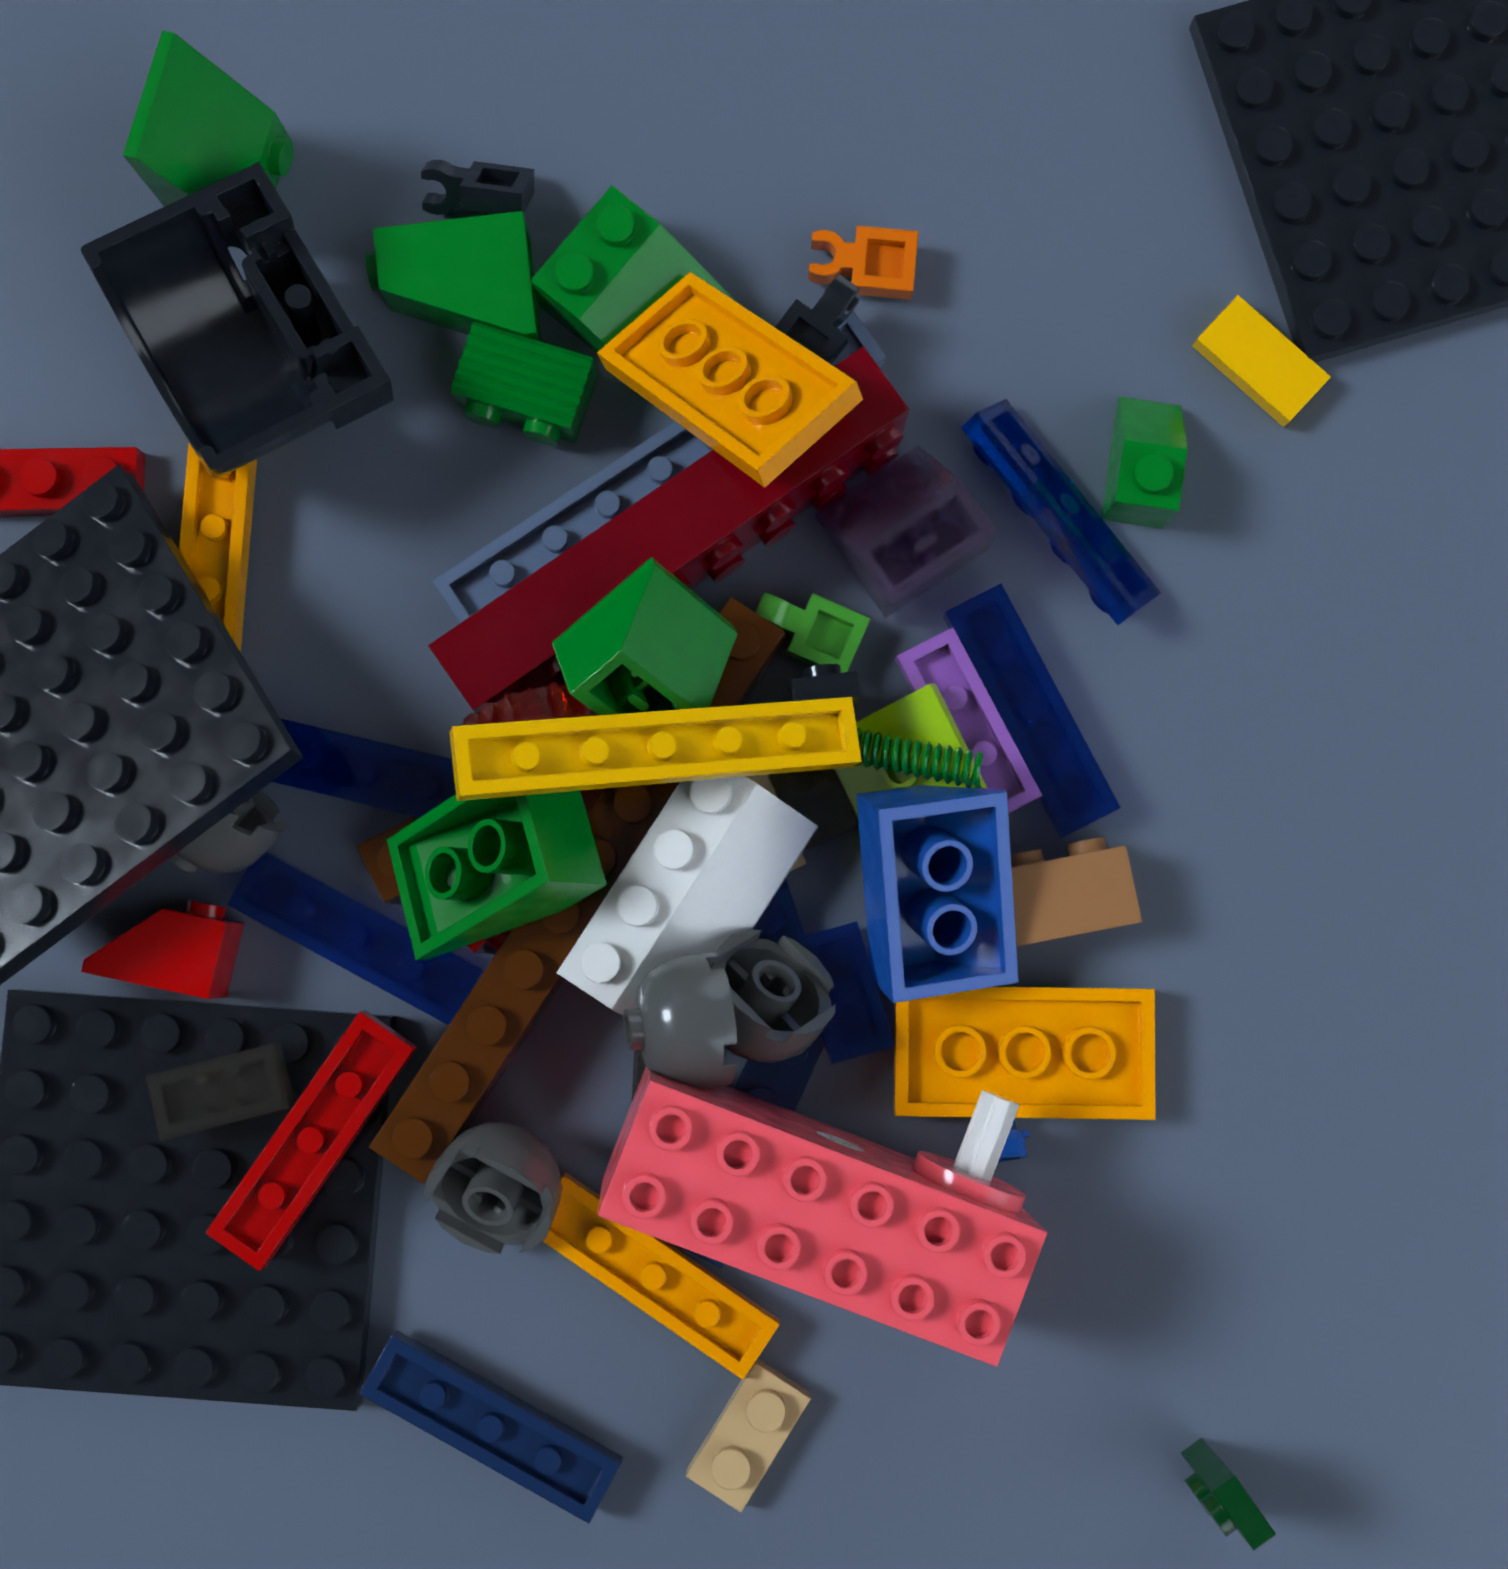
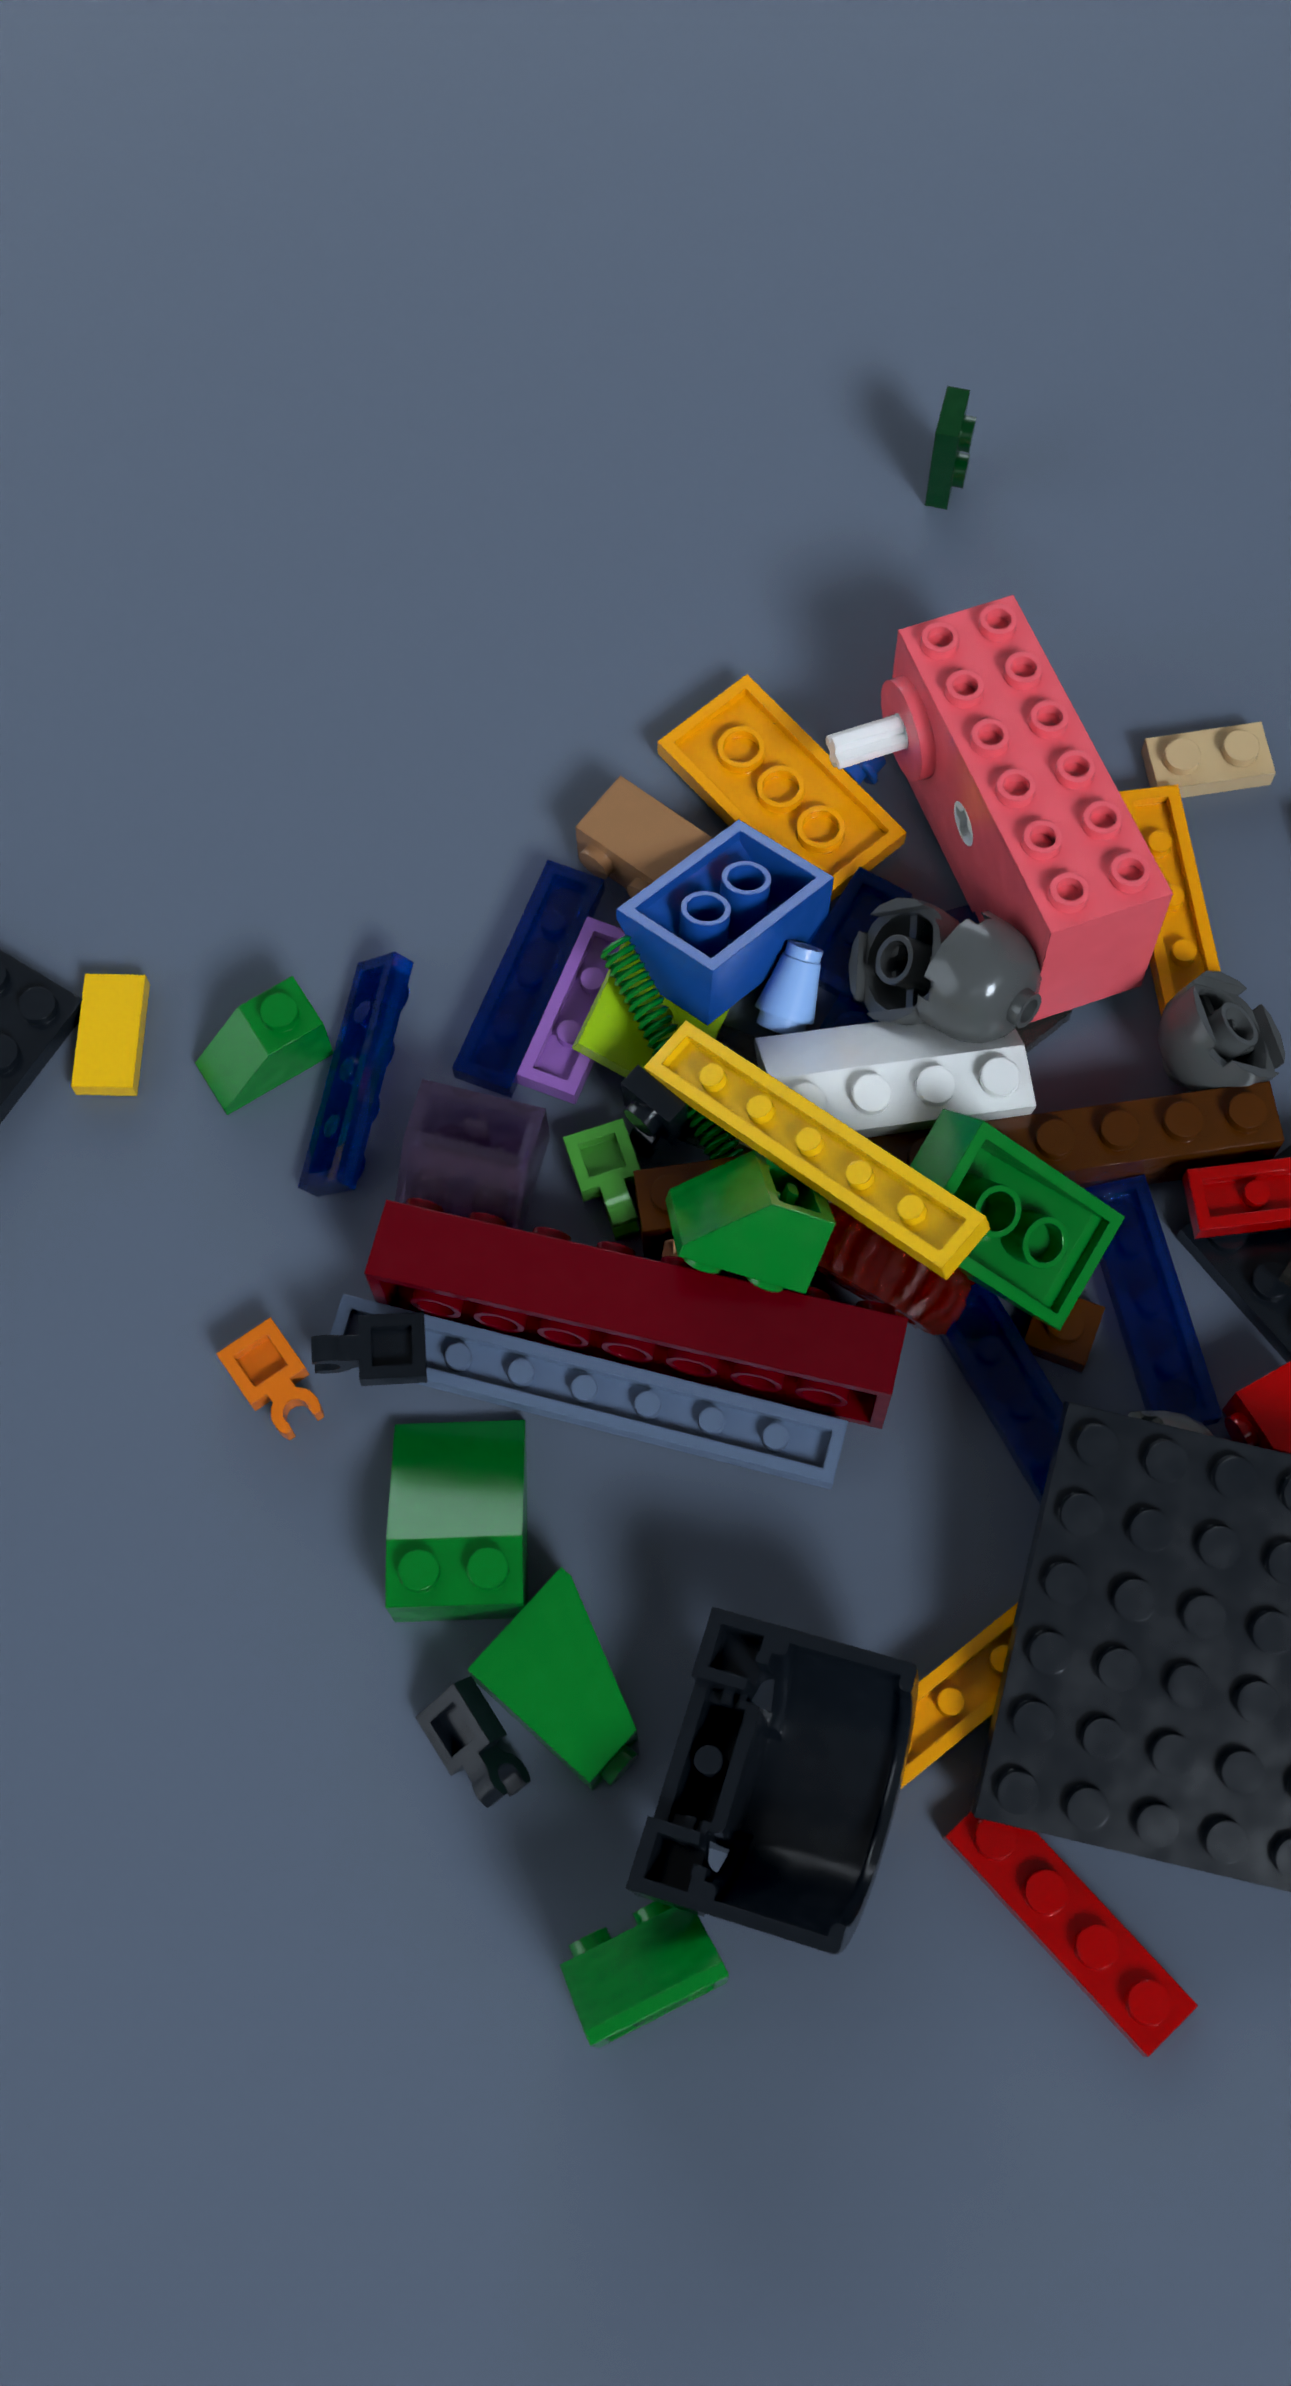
camera: 130 degrees left, 15 degrees down
(523, 384) = (608, 1555): green brick -> none
(730, 378) = (477, 1354): light orange plate -> none
(835, 894) = (791, 990): none -> light blue cone

